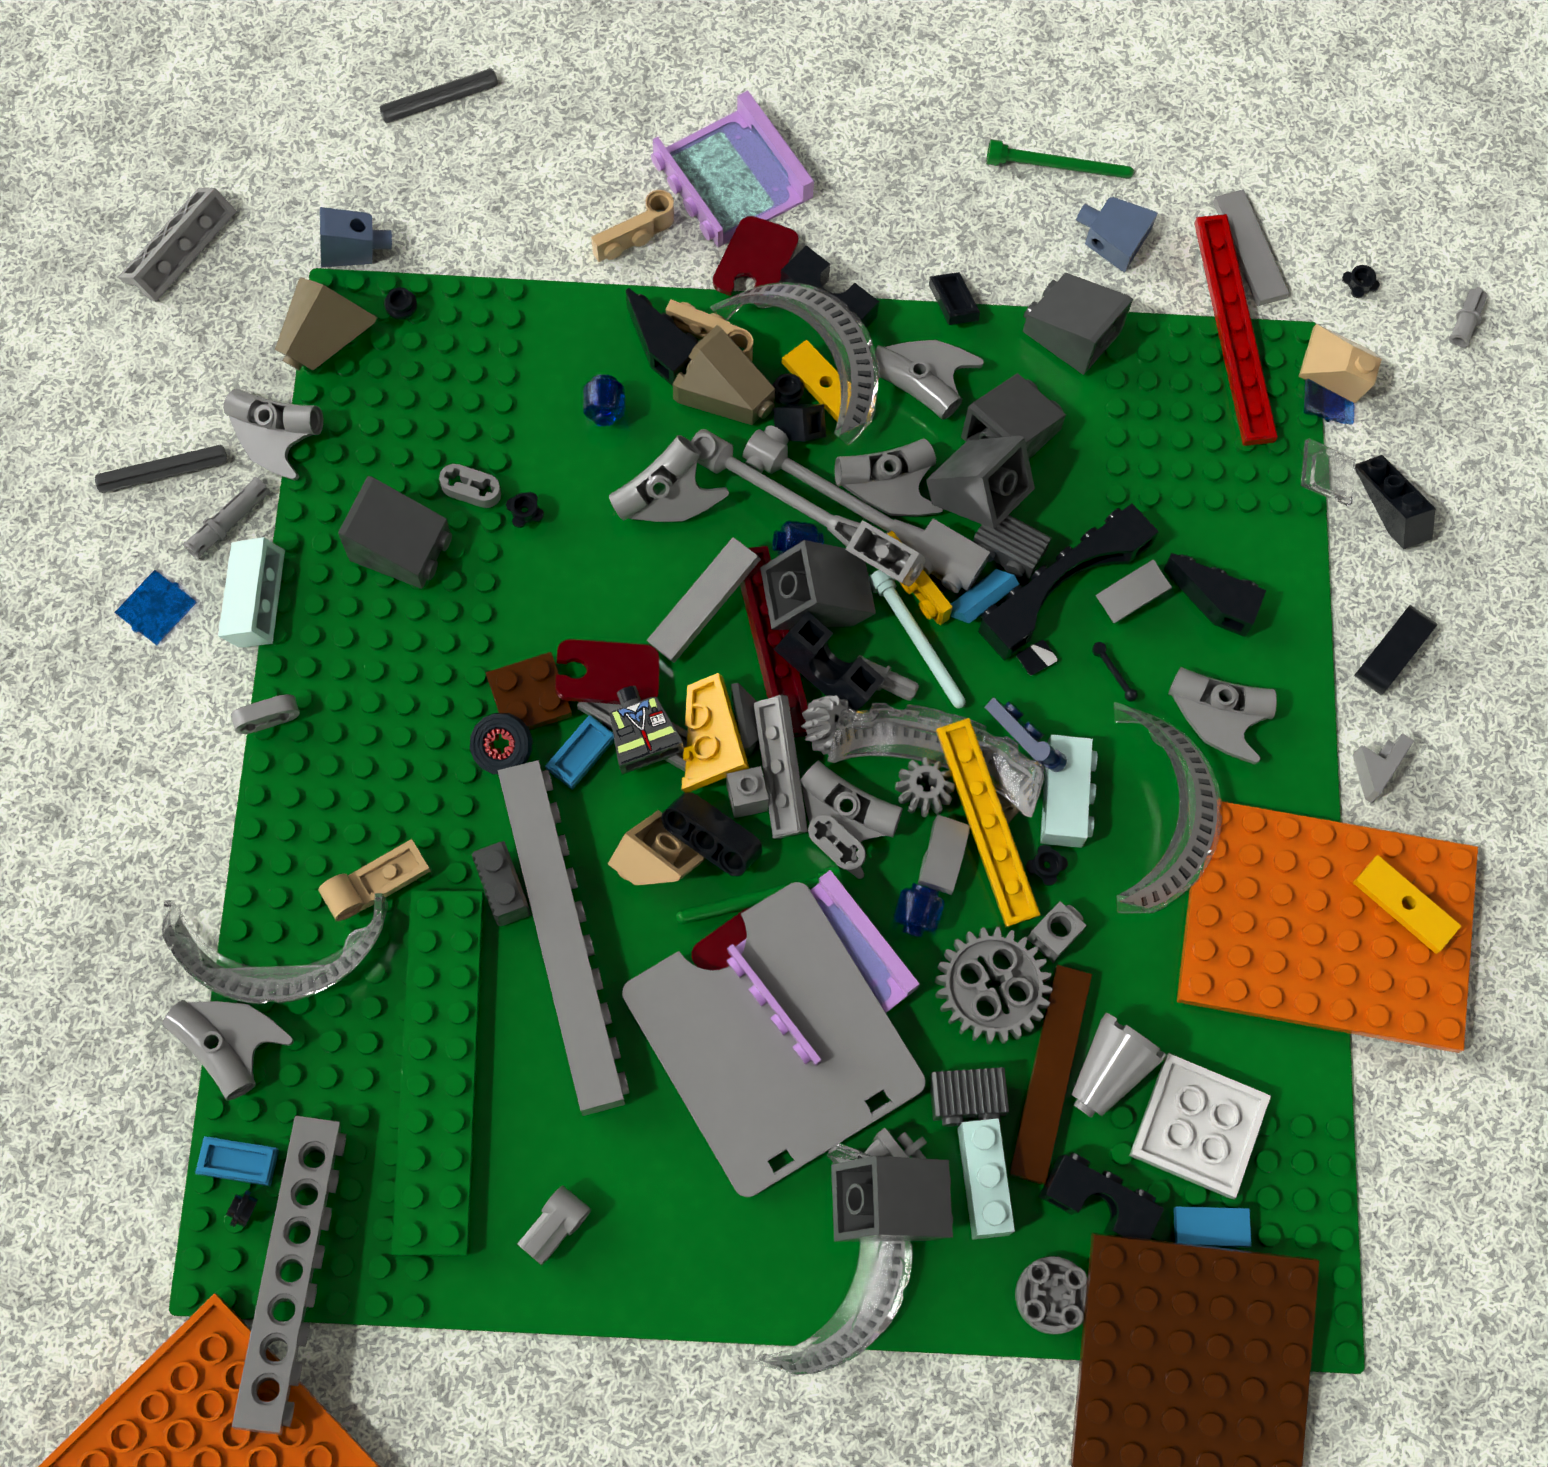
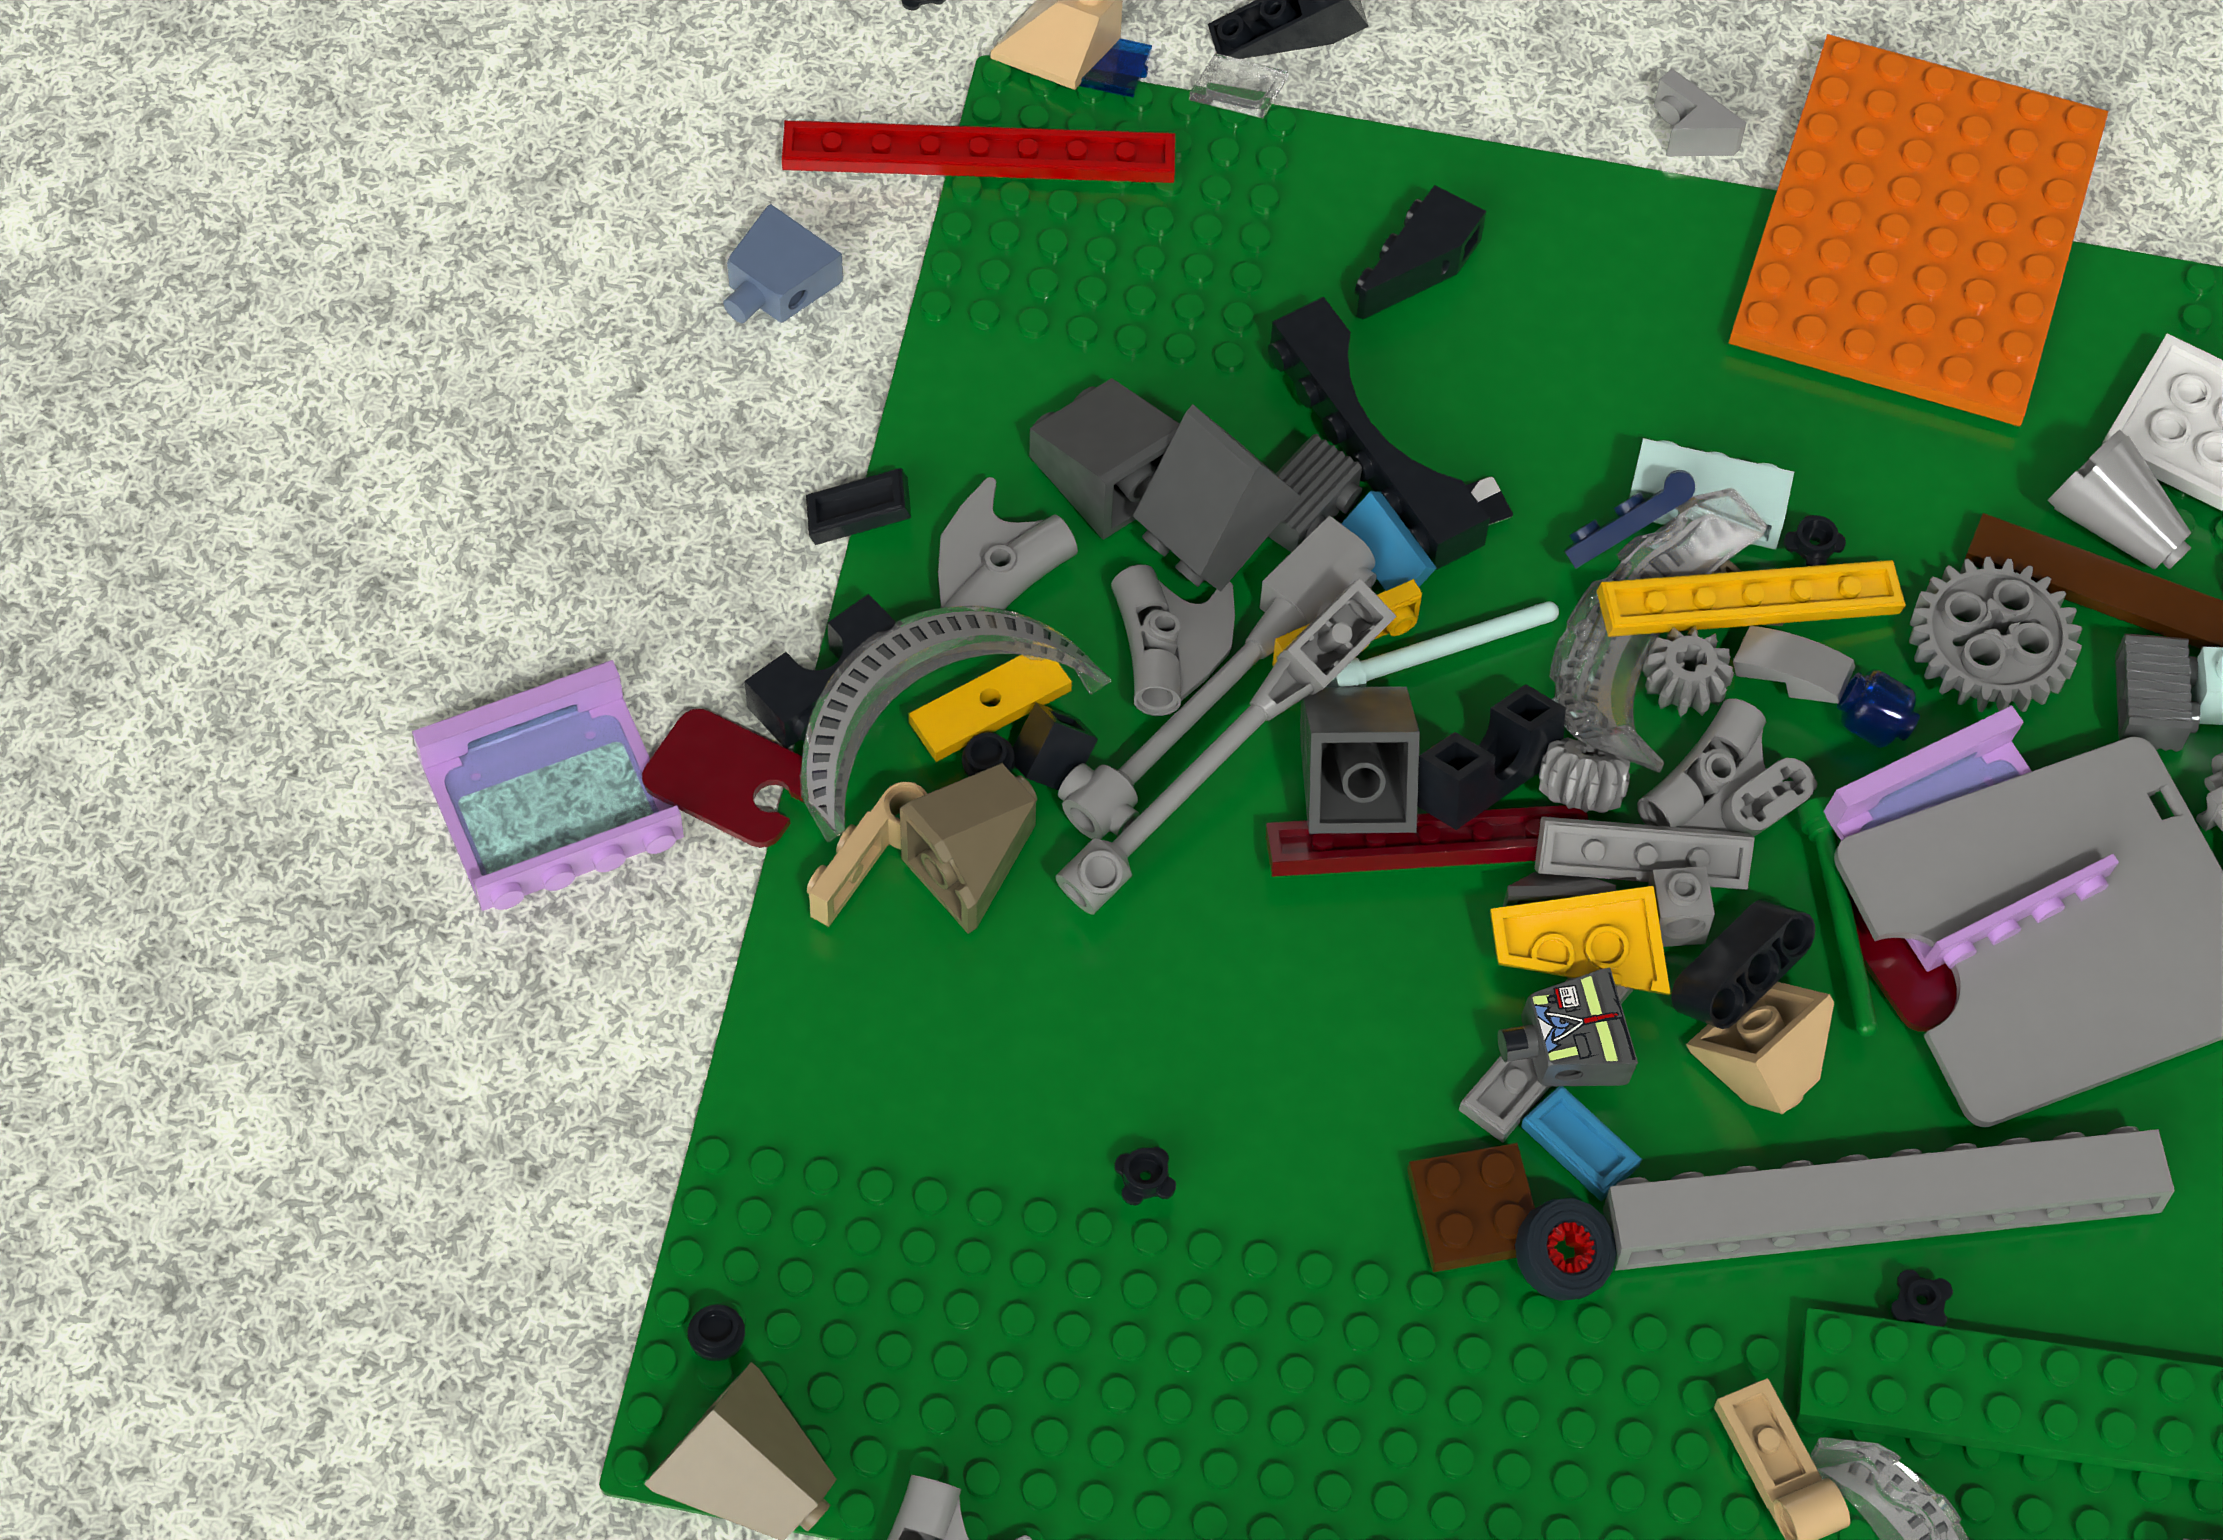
camera: 80 degrees left, 10 degrees down
(349, 238) = (569, 1406): sand blue torso -> none
(394, 534) = (1178, 1372): dark grey slope -> none
(438, 95) = (281, 1239): dark grey axle -> none
(472, 481) = (1077, 1250): light grey beam -> none
(501, 884) = (1802, 1273): dark grey brick -> none
(501, 970) = (1907, 1307): none -> black plate
(604, 400) = (970, 1024): clear blue head -> none
(609, 669) = (1453, 1068): dark red piece -> none
(636, 230) = (640, 942): tan plate -> none
(663, 342) = (873, 928): black slope -> none
(676, 497) = (1149, 946): light grey pin -> none
(703, 600) = (1353, 922): light grey tile -> none
(793, 533) = (1268, 778): clear blue head -> none
(894, 682) = (1523, 671): light grey axle -> none
(1000, 153) = (598, 403): green piece -> none
(1046, 941) = (1917, 559): light grey brick -> none
(1077, 320) = (946, 336): dark grey slope -> none
(1099, 650) = (1483, 419): black hinge -> none
(1133, 591) = (1407, 355): light grey slope -> none
(1197, 822) = (1760, 333): windscreen -> none
(1222, 710) = (1602, 282): light grey pin -> none
(1252, 248) = (882, 102): light grey tile -> none
(1395, 650) = (1523, 66): black beam -> none
(1422, 919) = (1915, 120): yellow tile -> none

